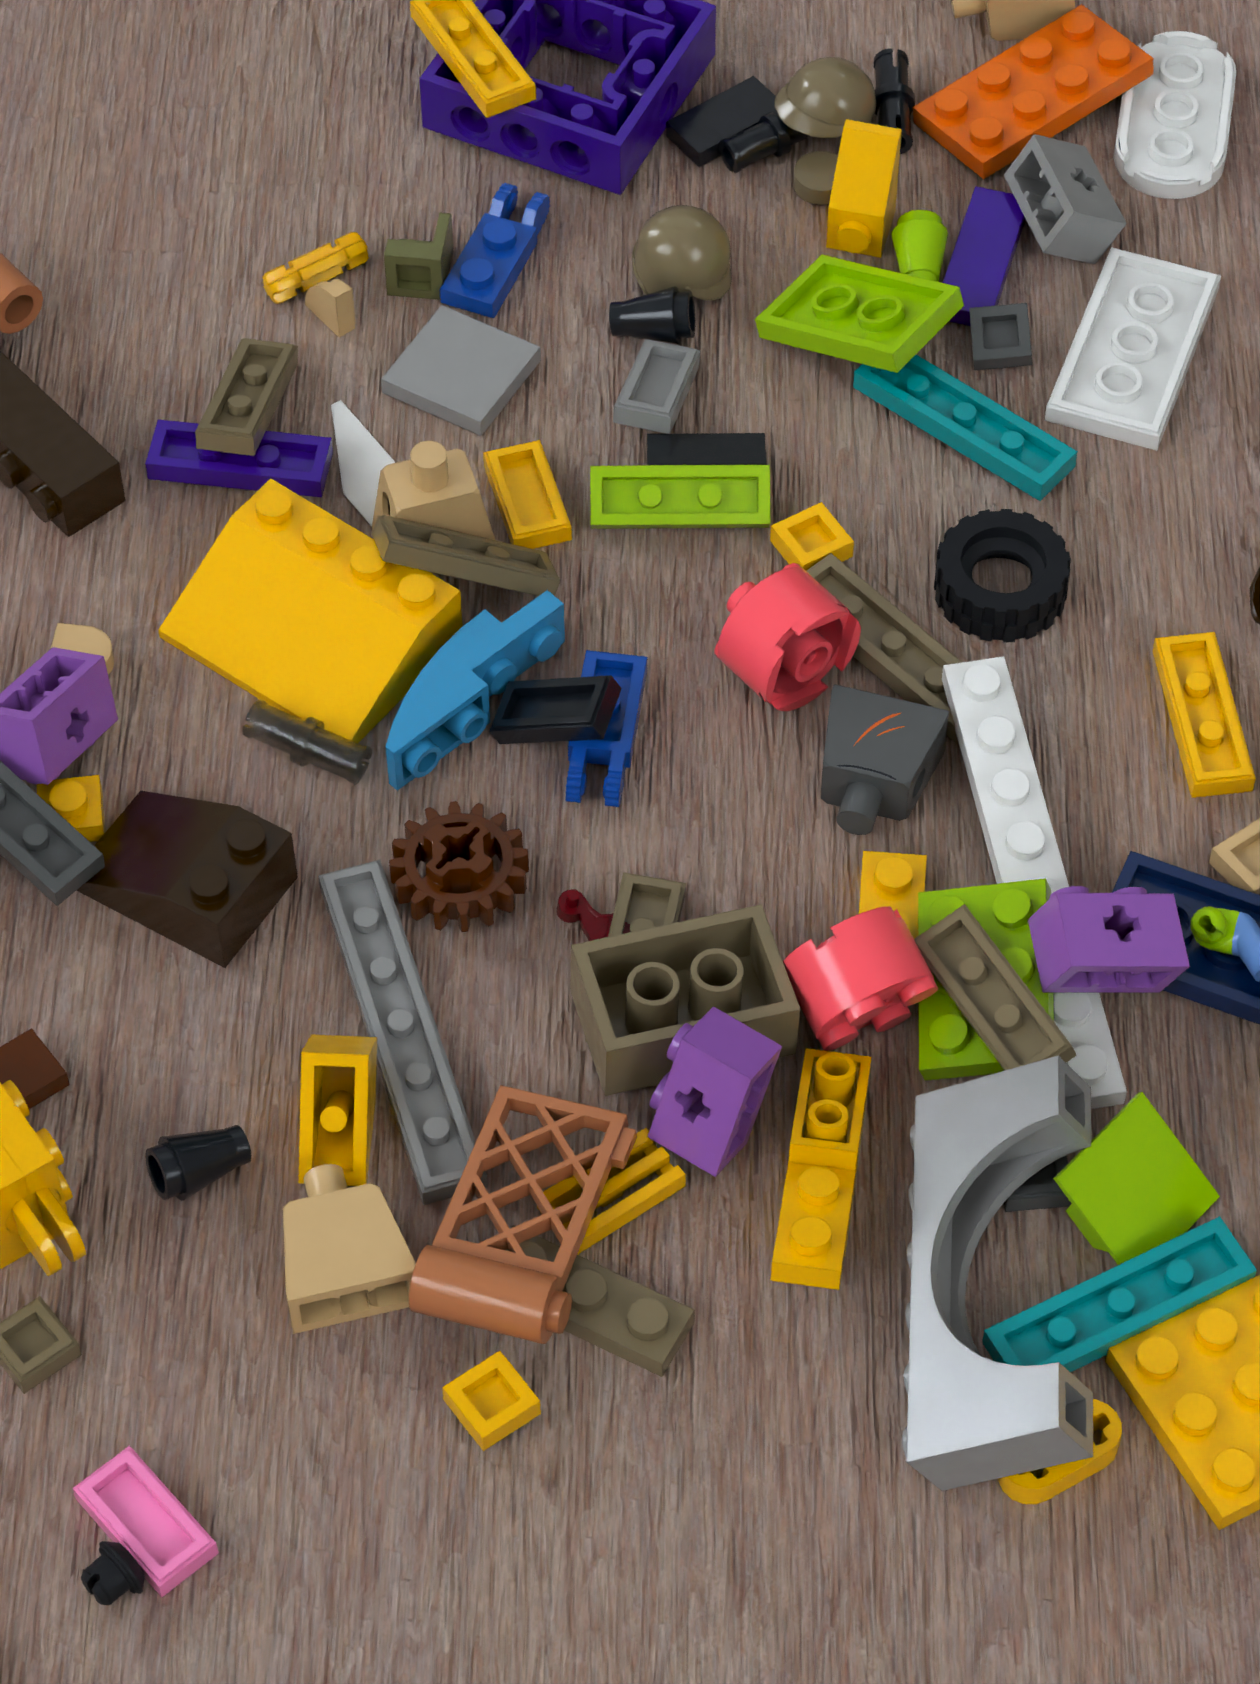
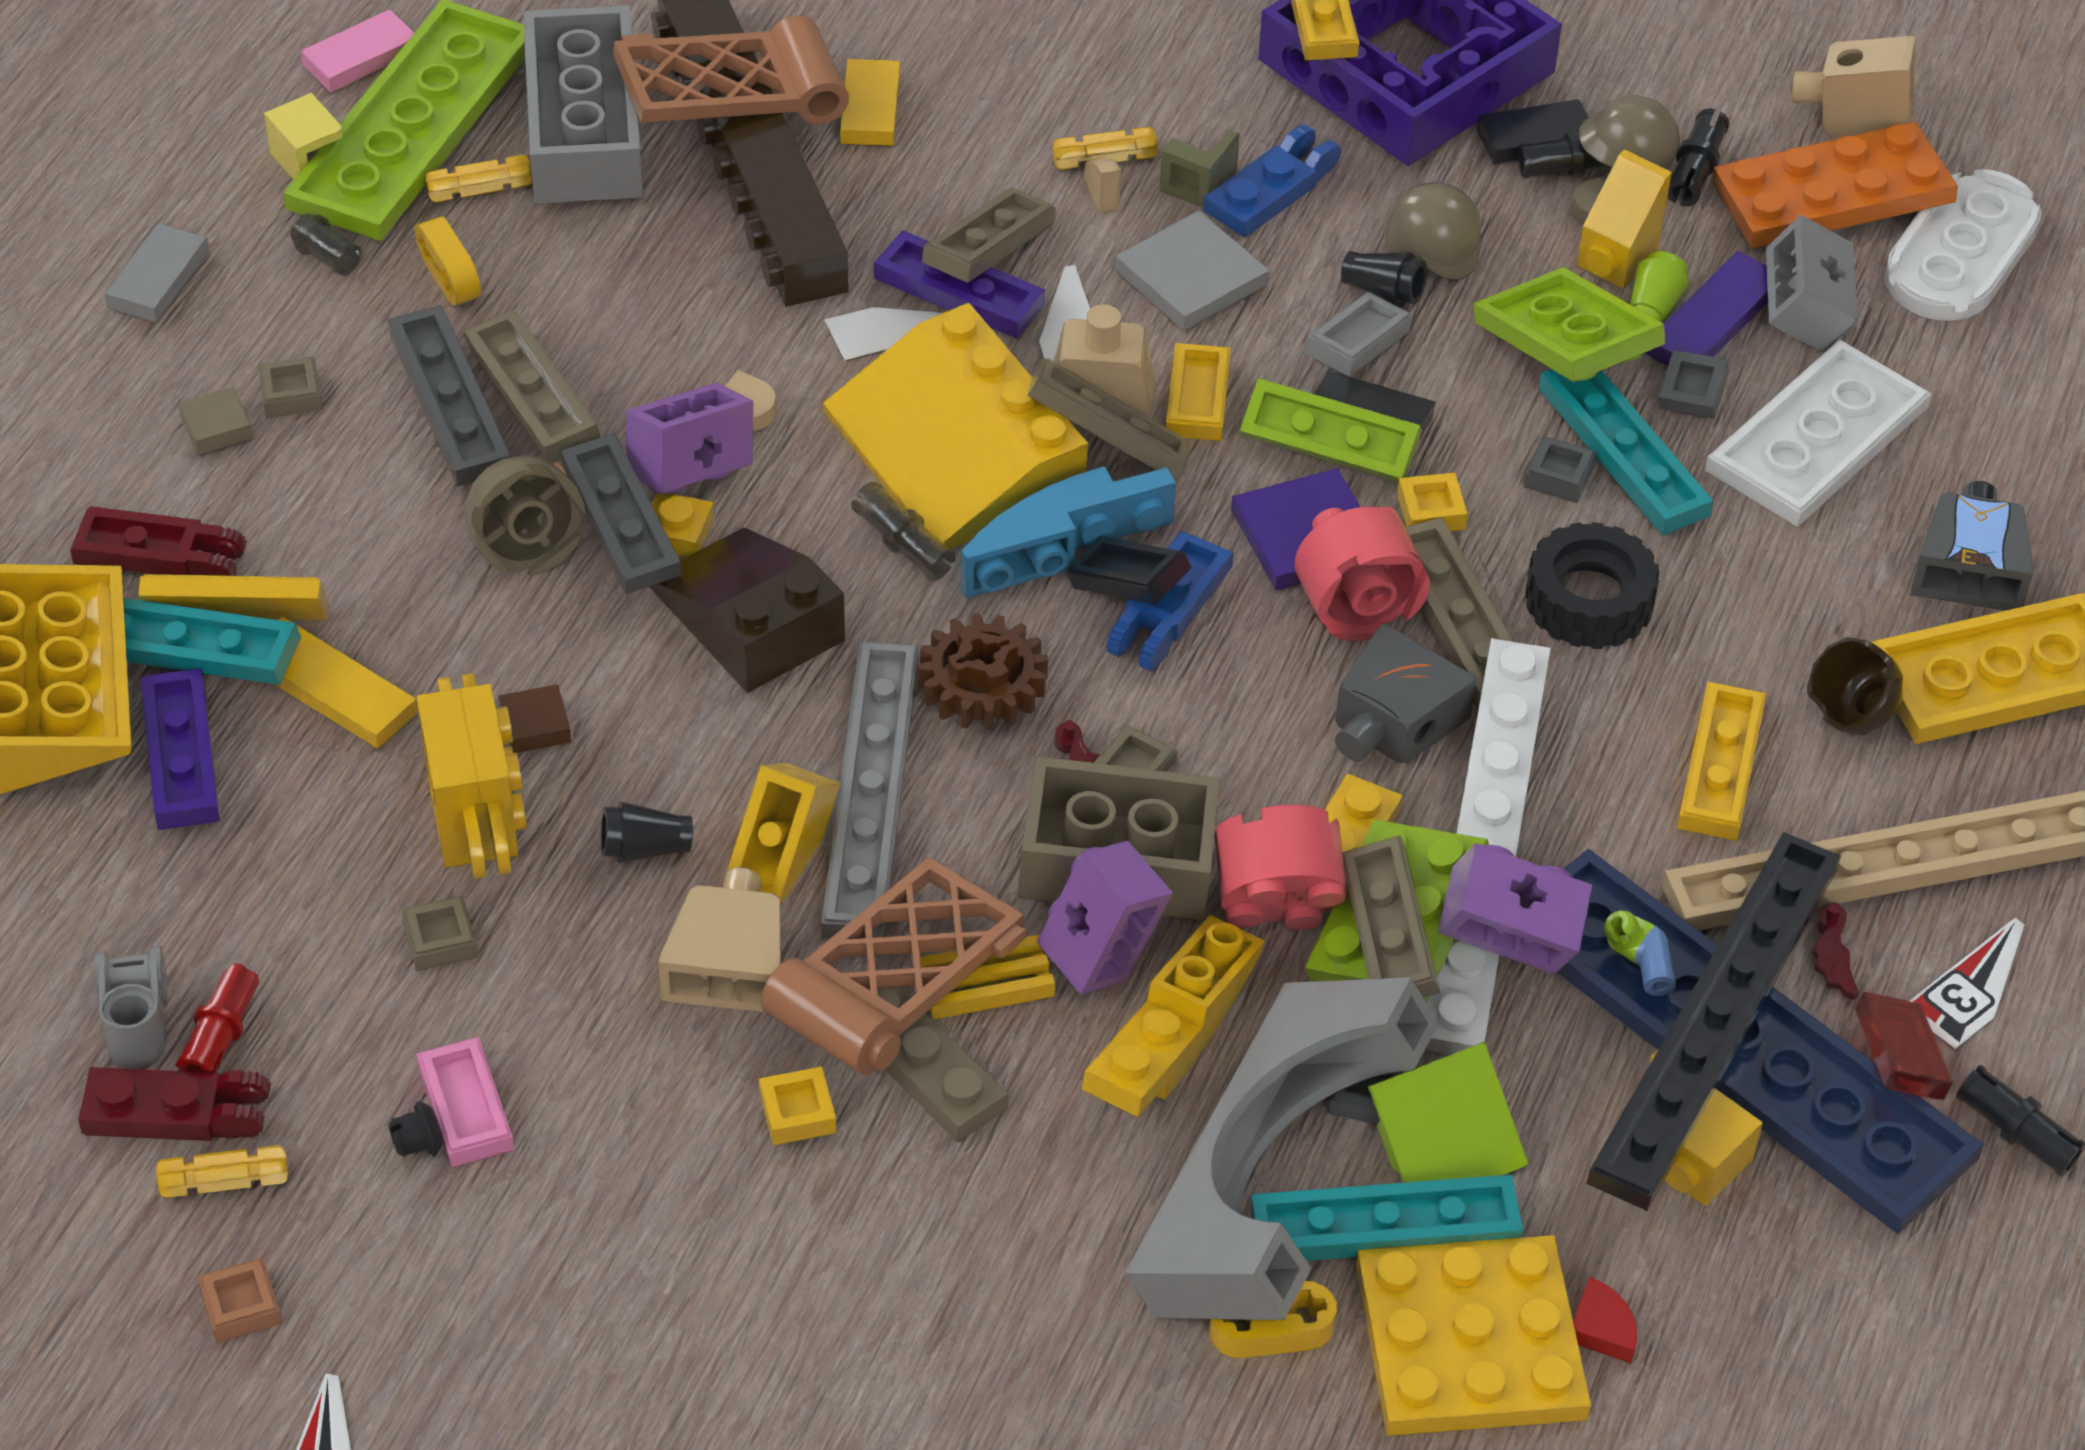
camera: 20 degrees right, 5 degrees down
(66, 301) = (872, 102): none -> yellow tile
(180, 529) = (872, 329): none -> white sticker
(685, 603) = (1282, 516): none -> dark purple tile
(912, 464) = (1560, 469): none -> dark grey tile

